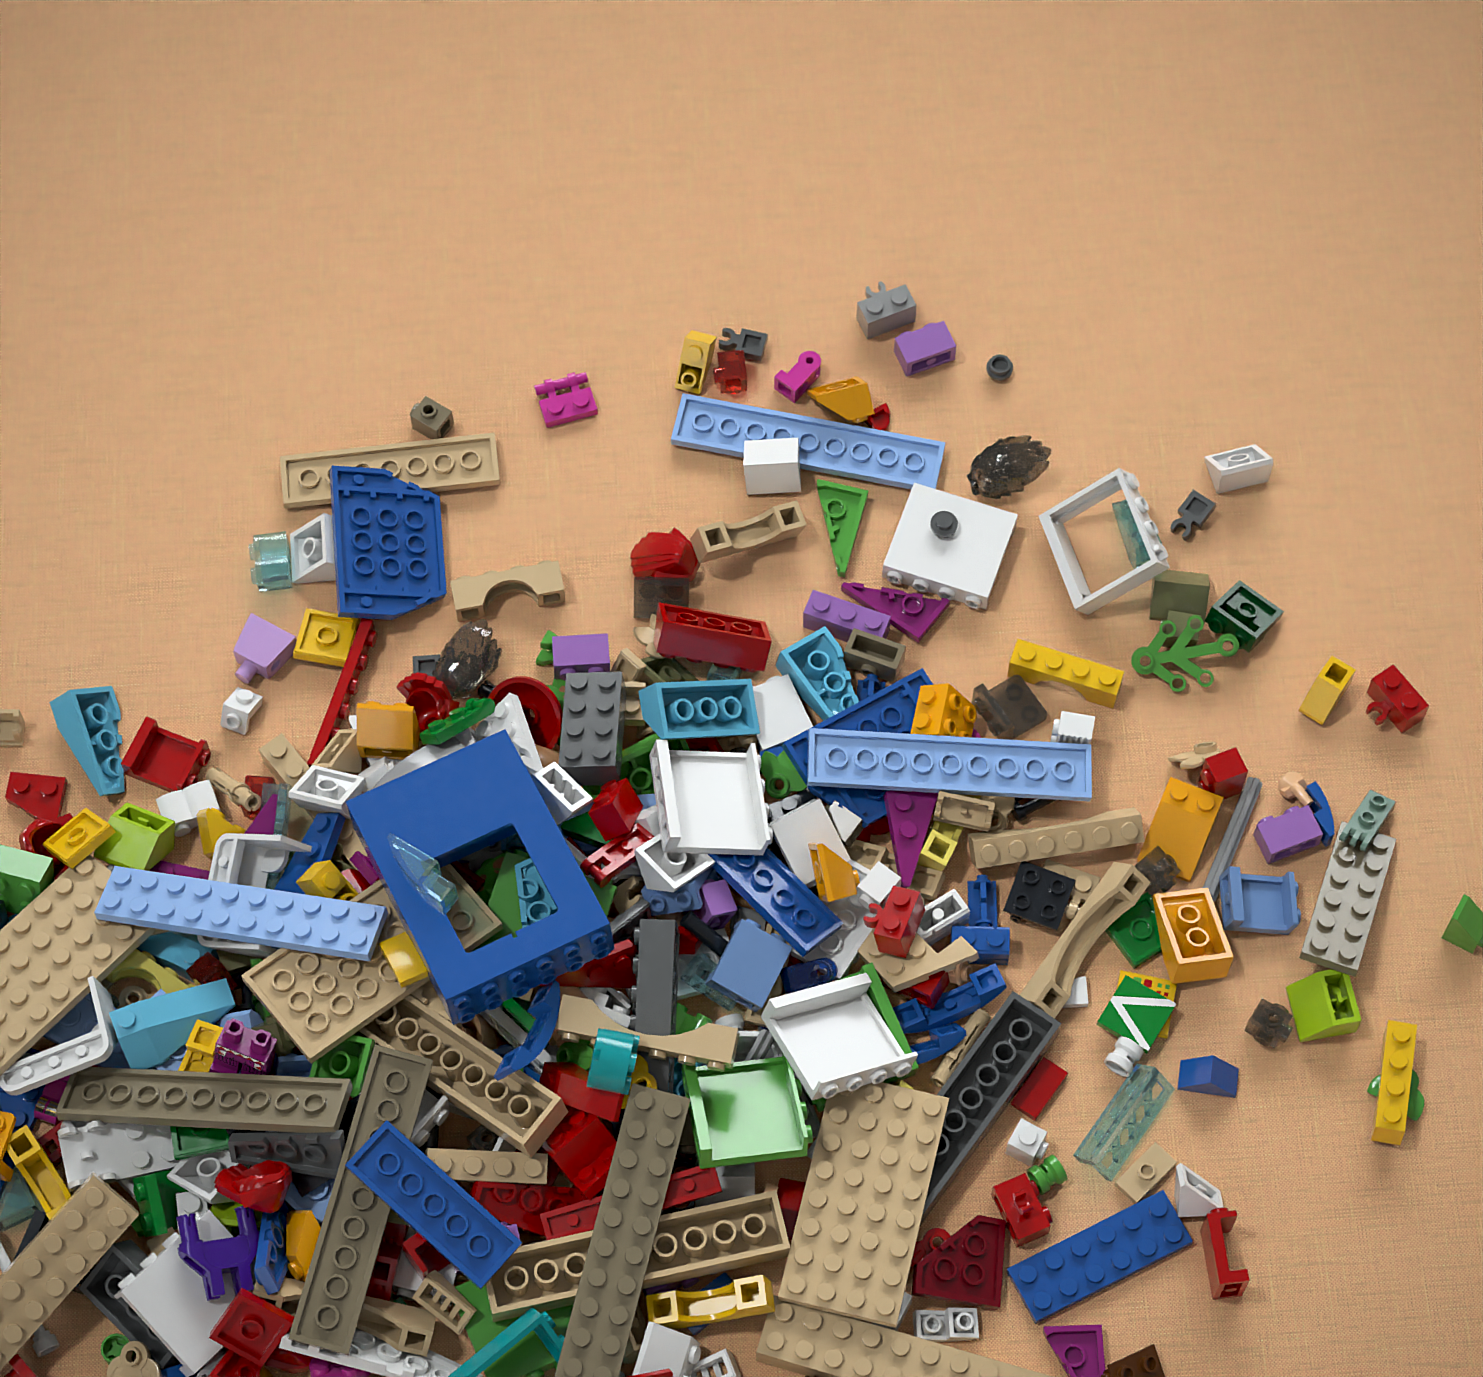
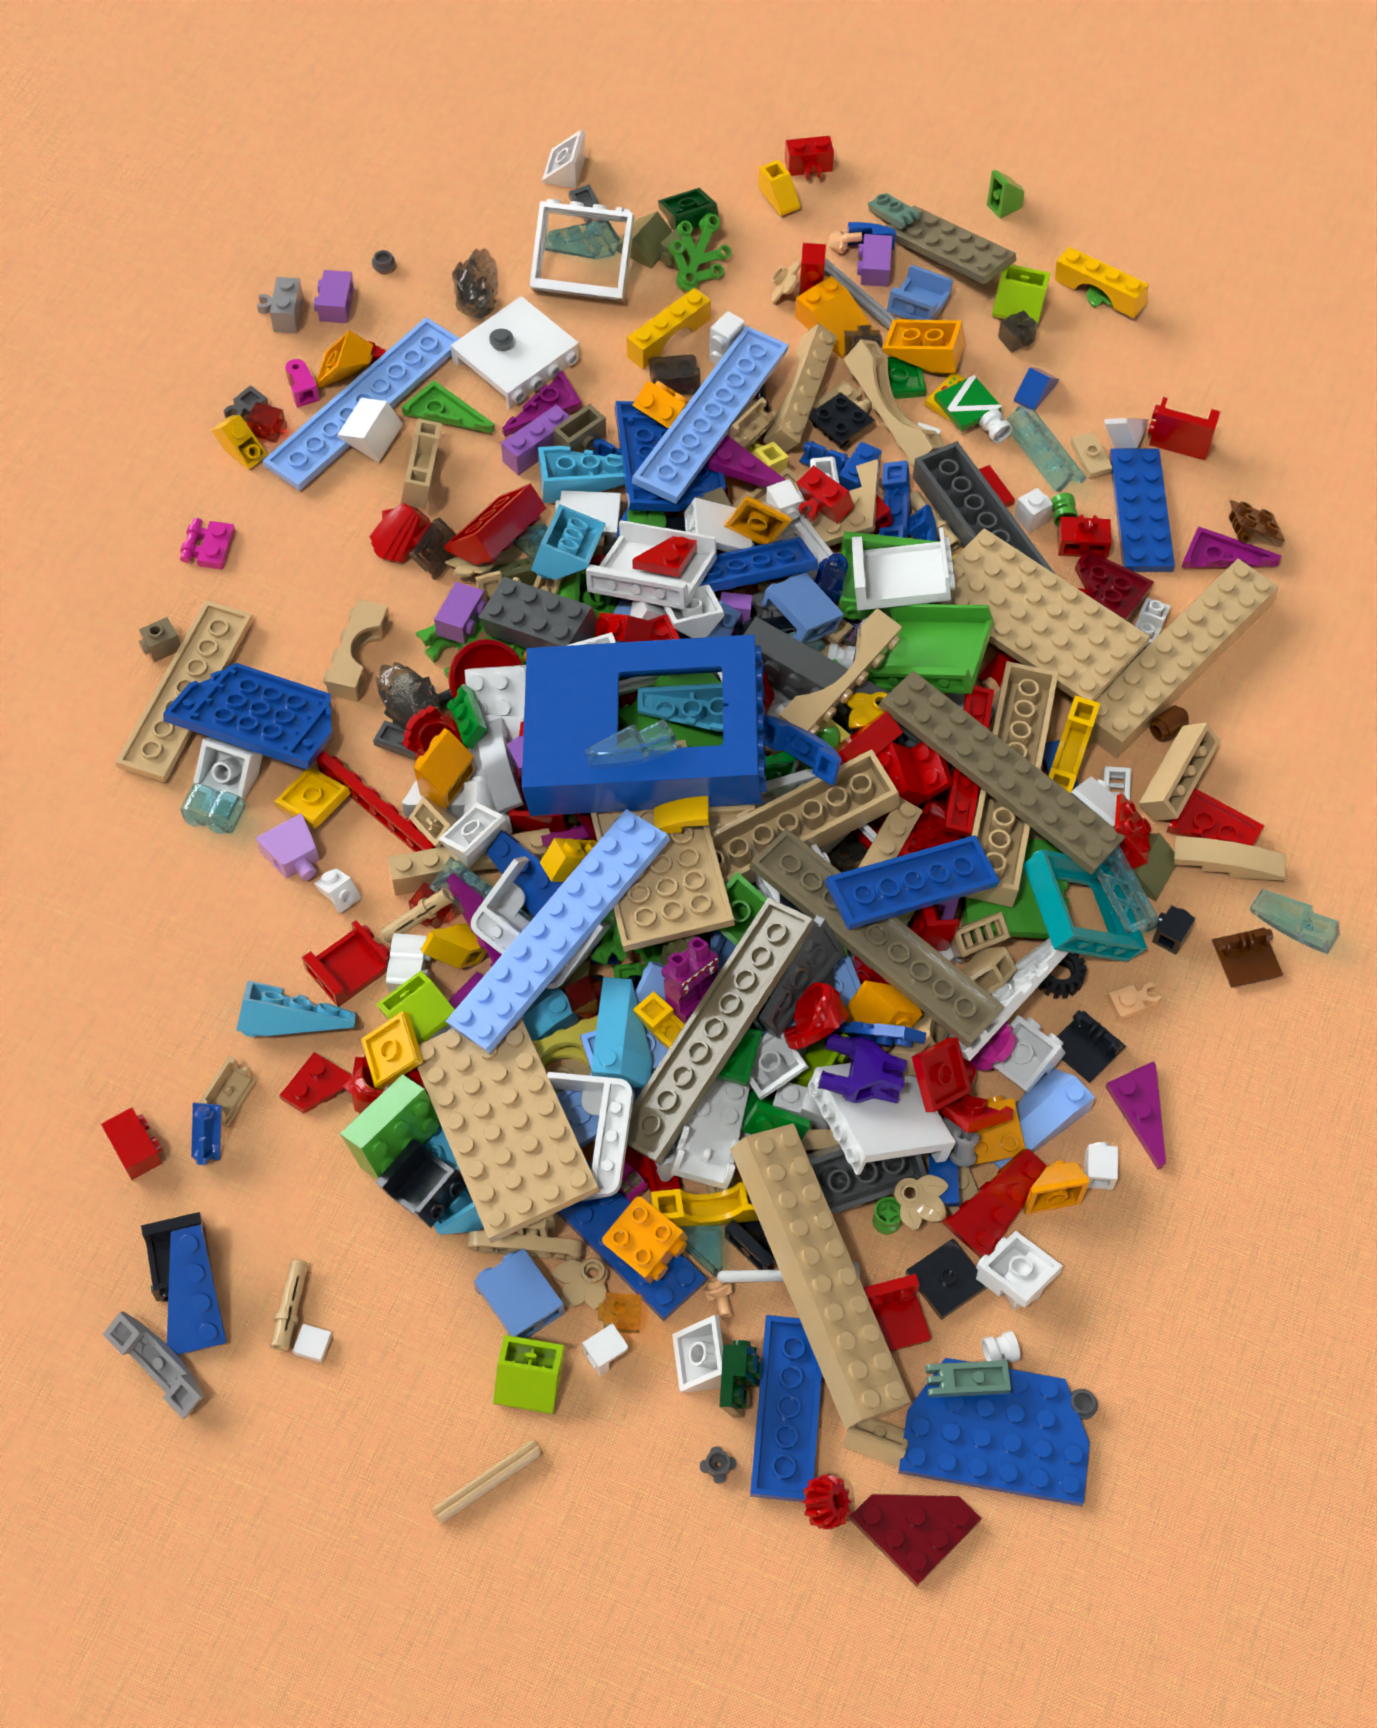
camera: 65 degrees left, 5 degrees down
(613, 1061) = (859, 700): teal brick -> none
(726, 808) = (667, 557): none -> red wing

